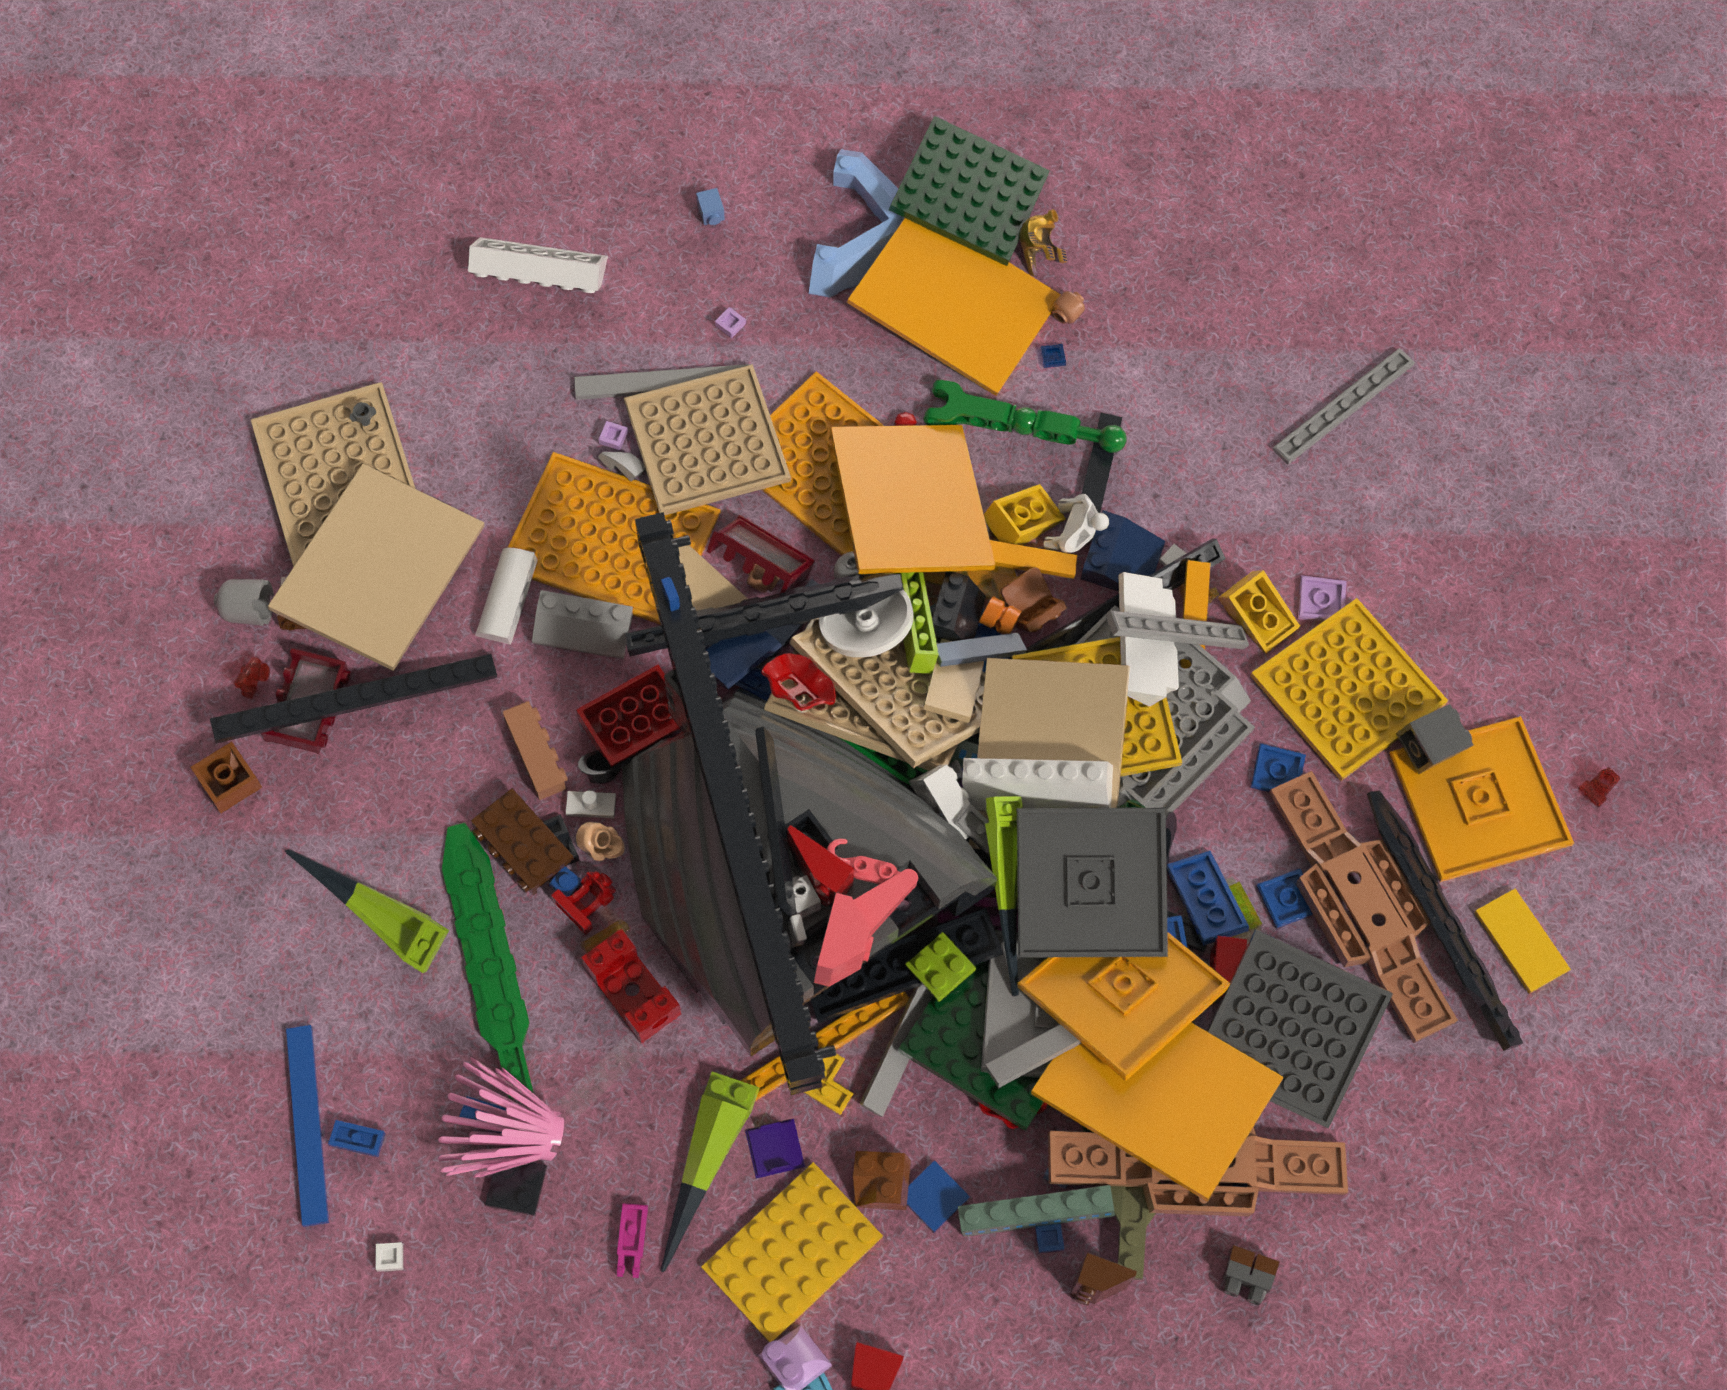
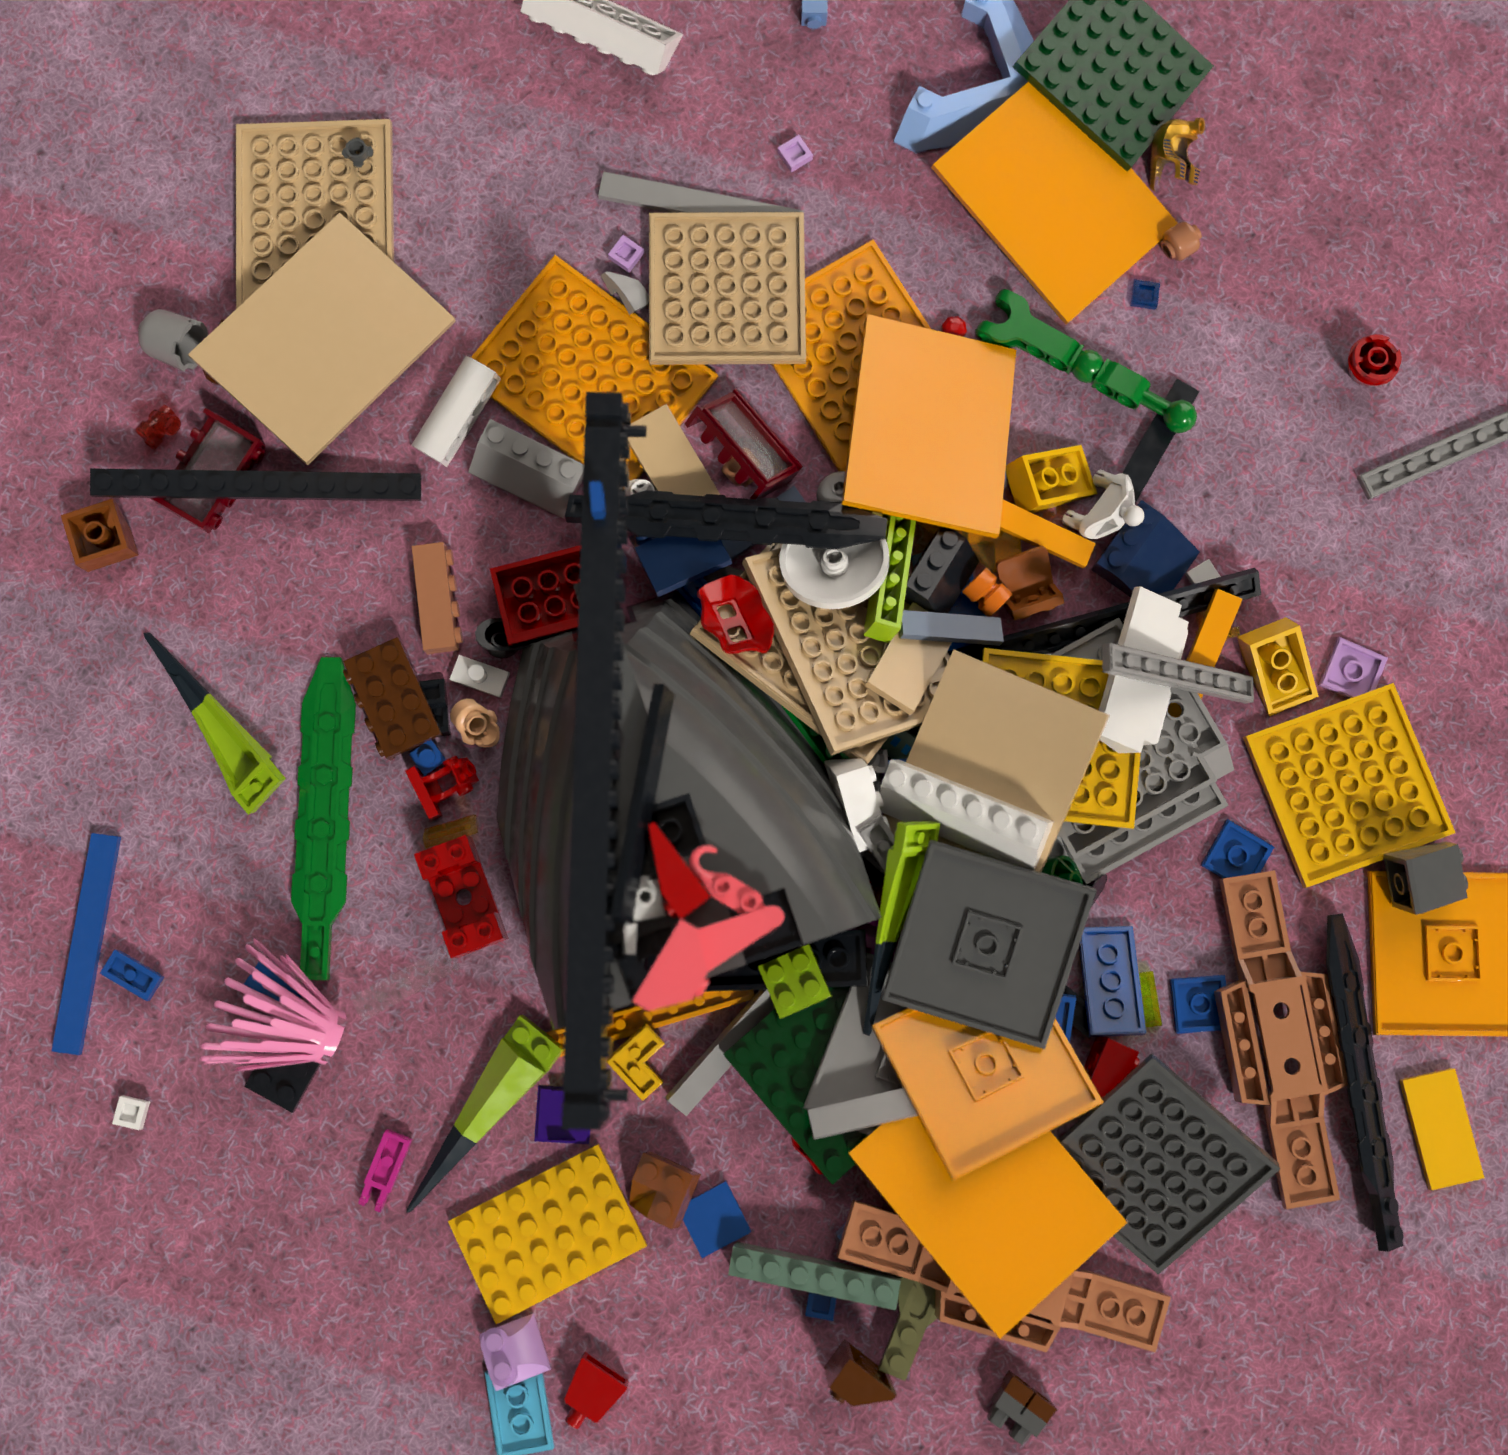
camera: 15 degrees right, 15 degrees up
(1253, 356) = (1373, 360): none -> red cone

